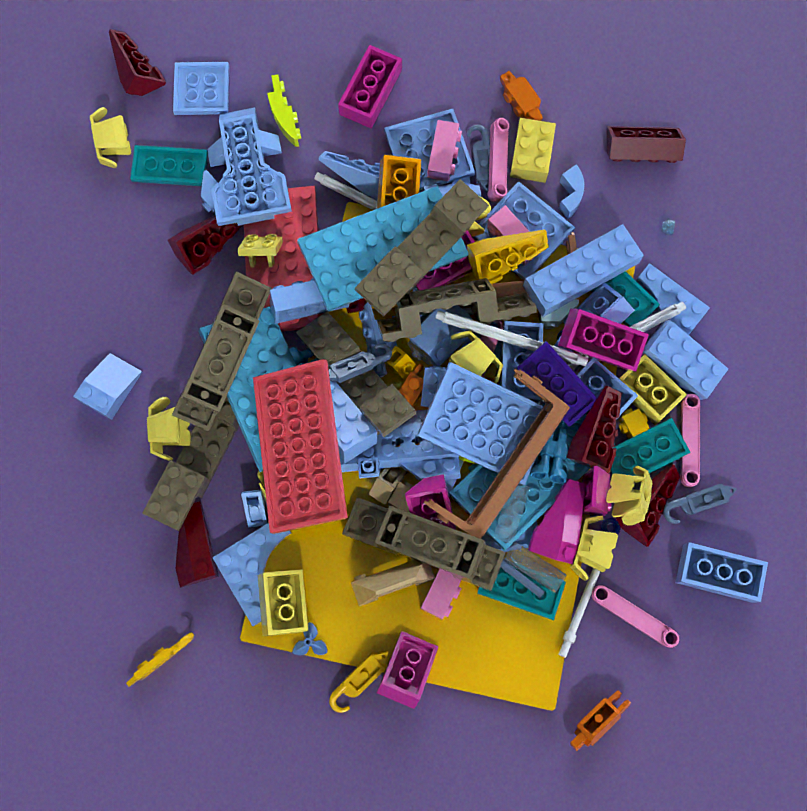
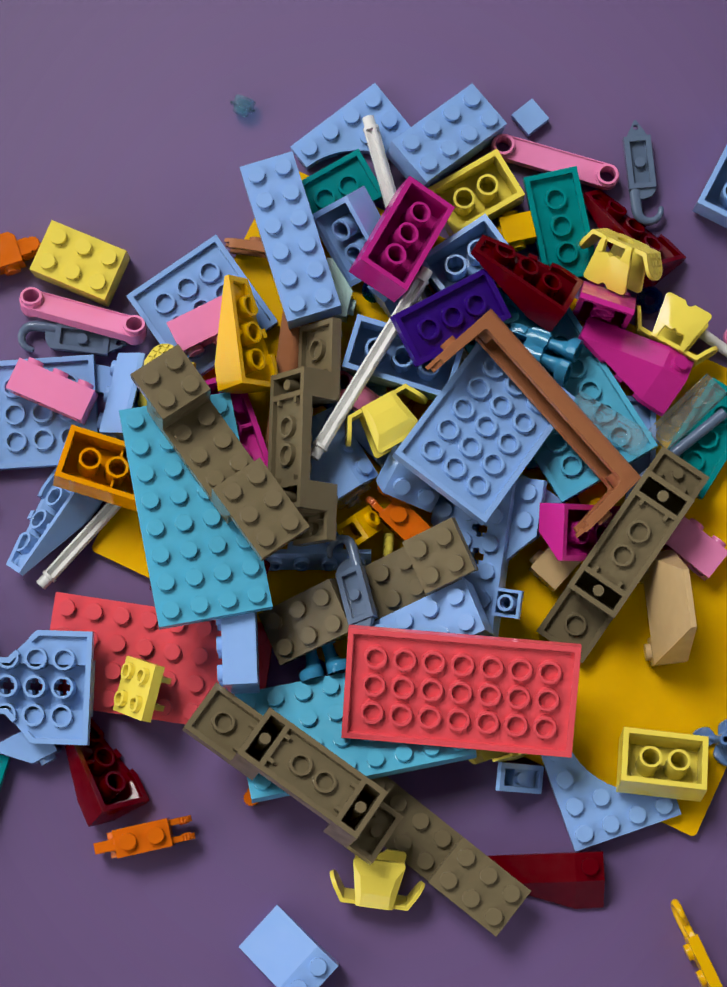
camera: 75 degrees left, 5 degrees up
(167, 276) = (143, 837): none -> orange hinge
(387, 483) = (524, 578): tan slope -> none
(573, 182) = (149, 217): light blue brick -> none
(645, 144) = (109, 102): dark red slope -> none
(716, 417) = (530, 117): none -> light blue tile

